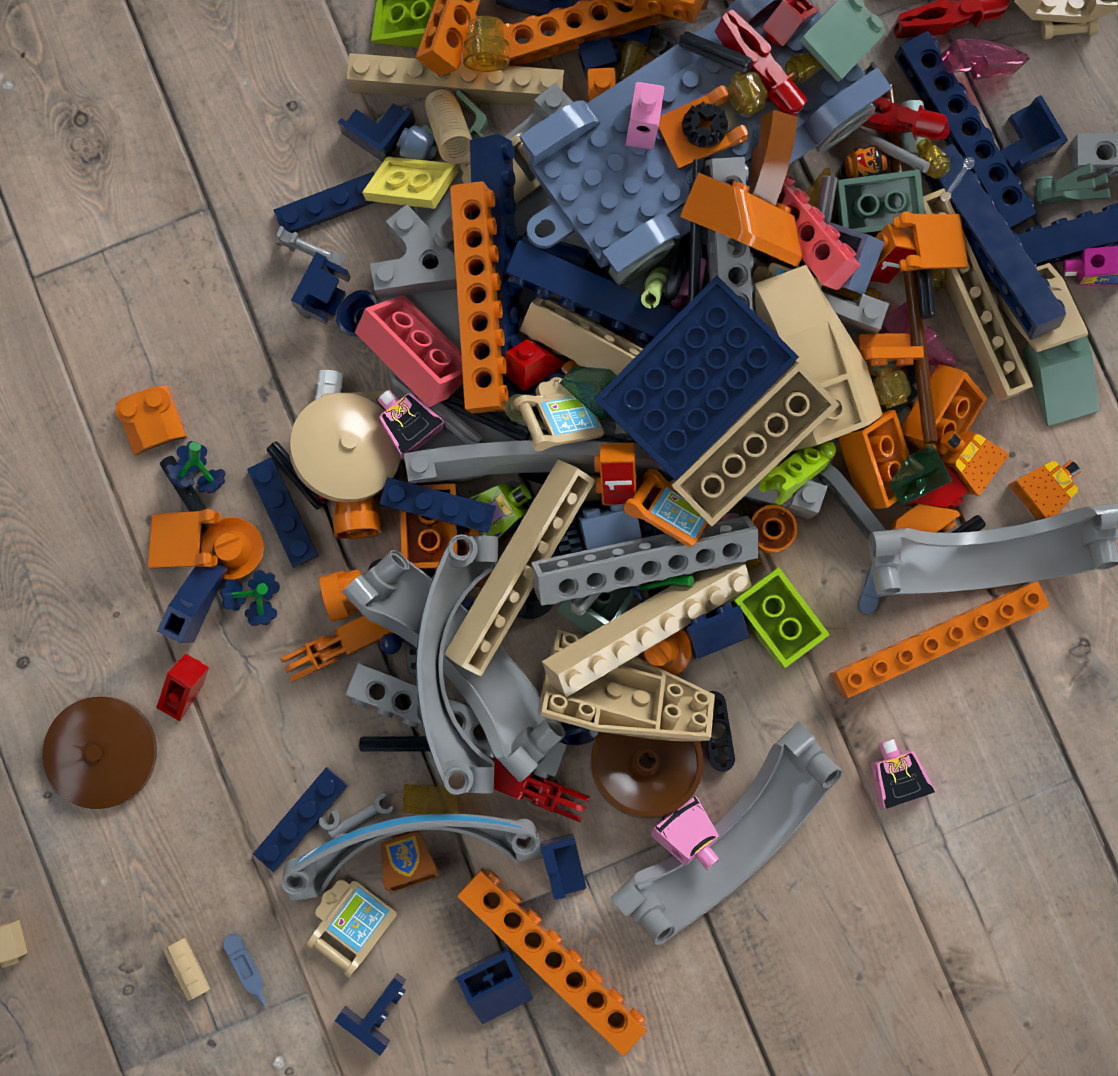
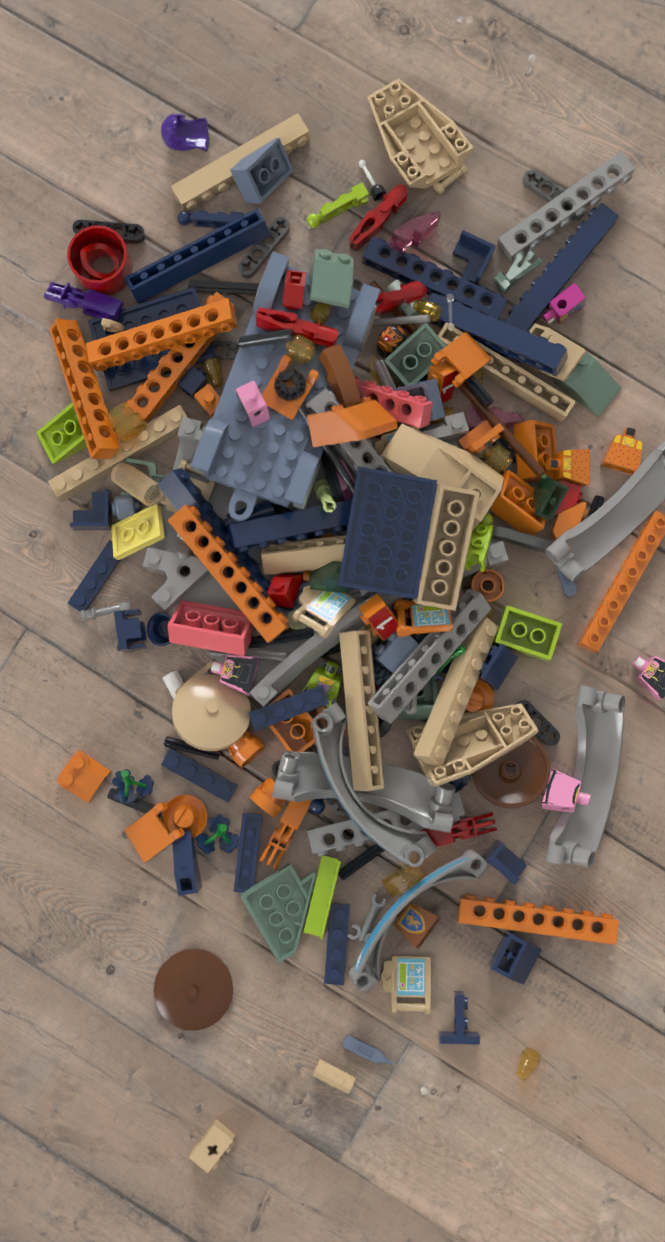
camera: 30 degrees left, 0 degrees up
(182, 686) = (214, 917): red slope -> none
(262, 731) = (280, 908): none -> sand green wing
(273, 641) = (248, 851): none -> dark blue plate
(323, 751) = (322, 895): none -> lime panel

